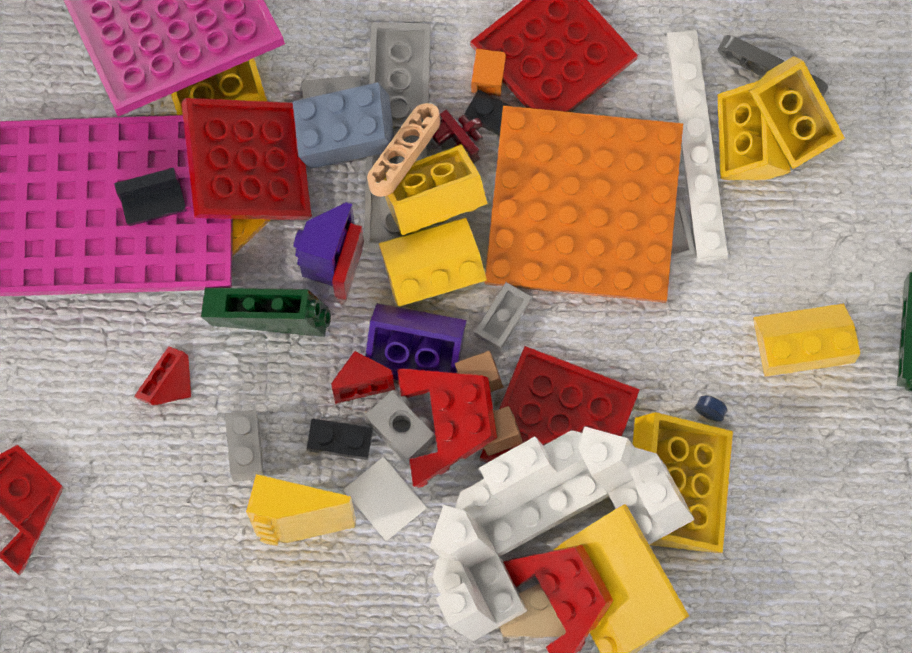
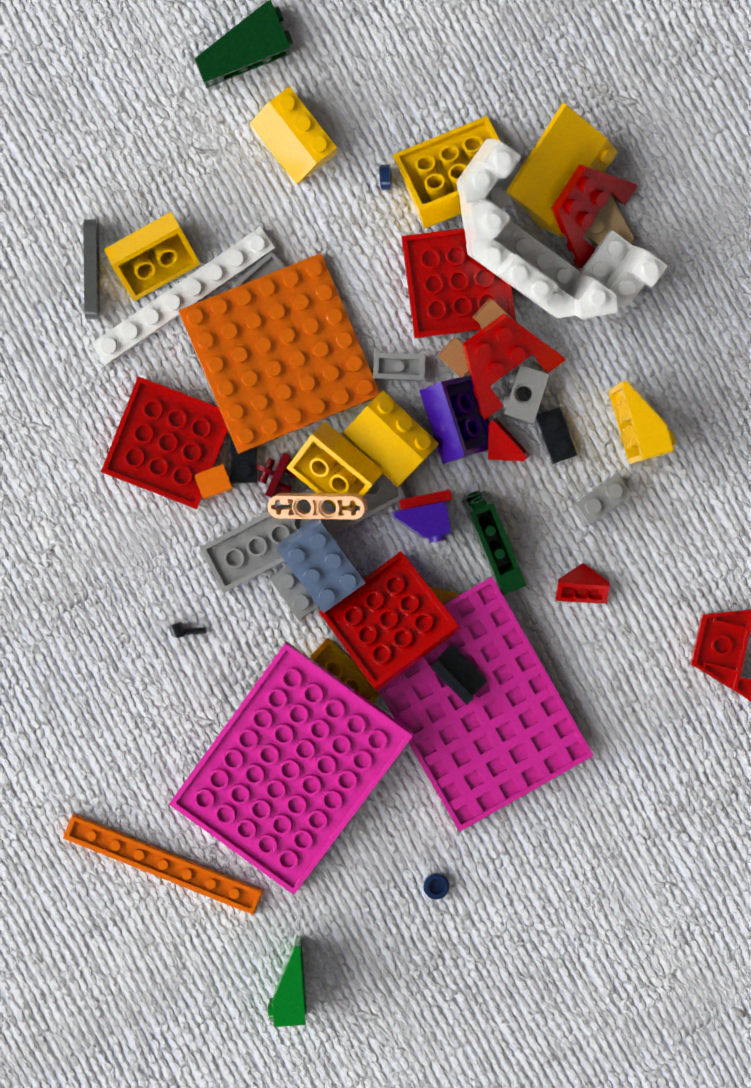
camera: 120 degrees left, 15 degrees up
(385, 498) = (580, 379): white sticker -> none
(796, 111) = (124, 229): yellow slope -> none

